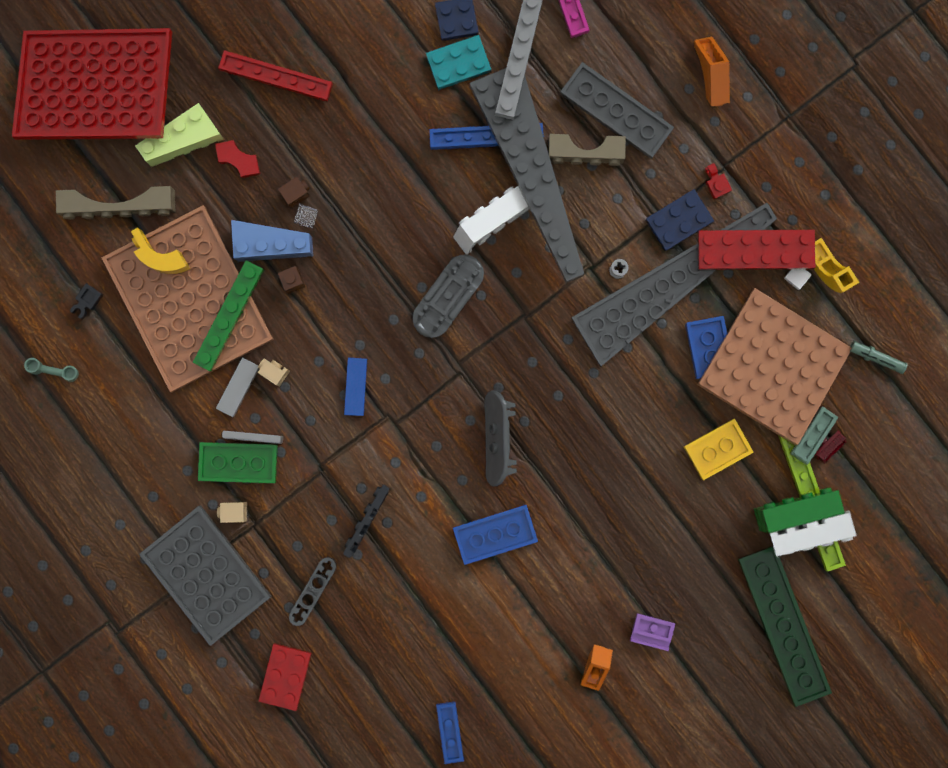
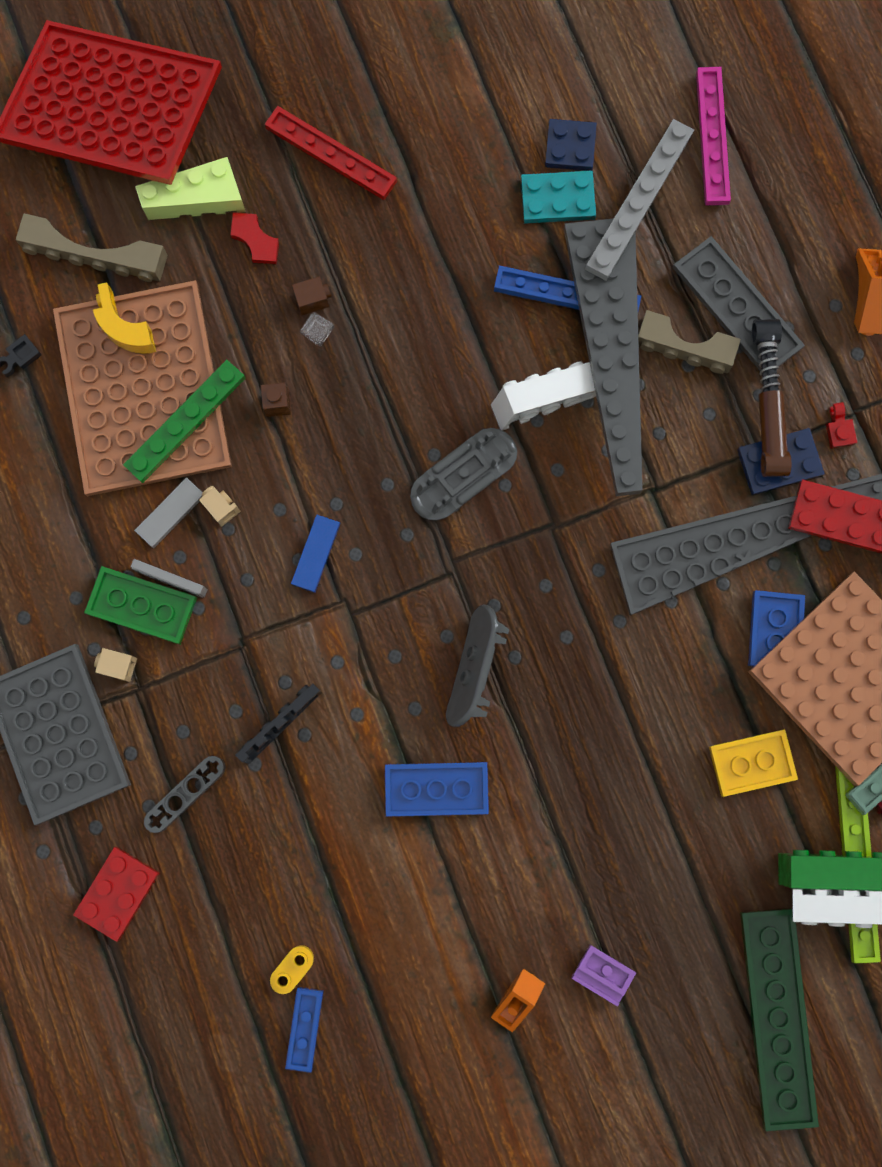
camera: 20 degrees right, 5 degrees down
(265, 242) = (261, 347): medium blue wedge -> none
(428, 693) = (292, 970): none -> yellow plate
(615, 273) = (693, 495): light grey bush -> none
(674, 218) = (775, 453): none -> piece

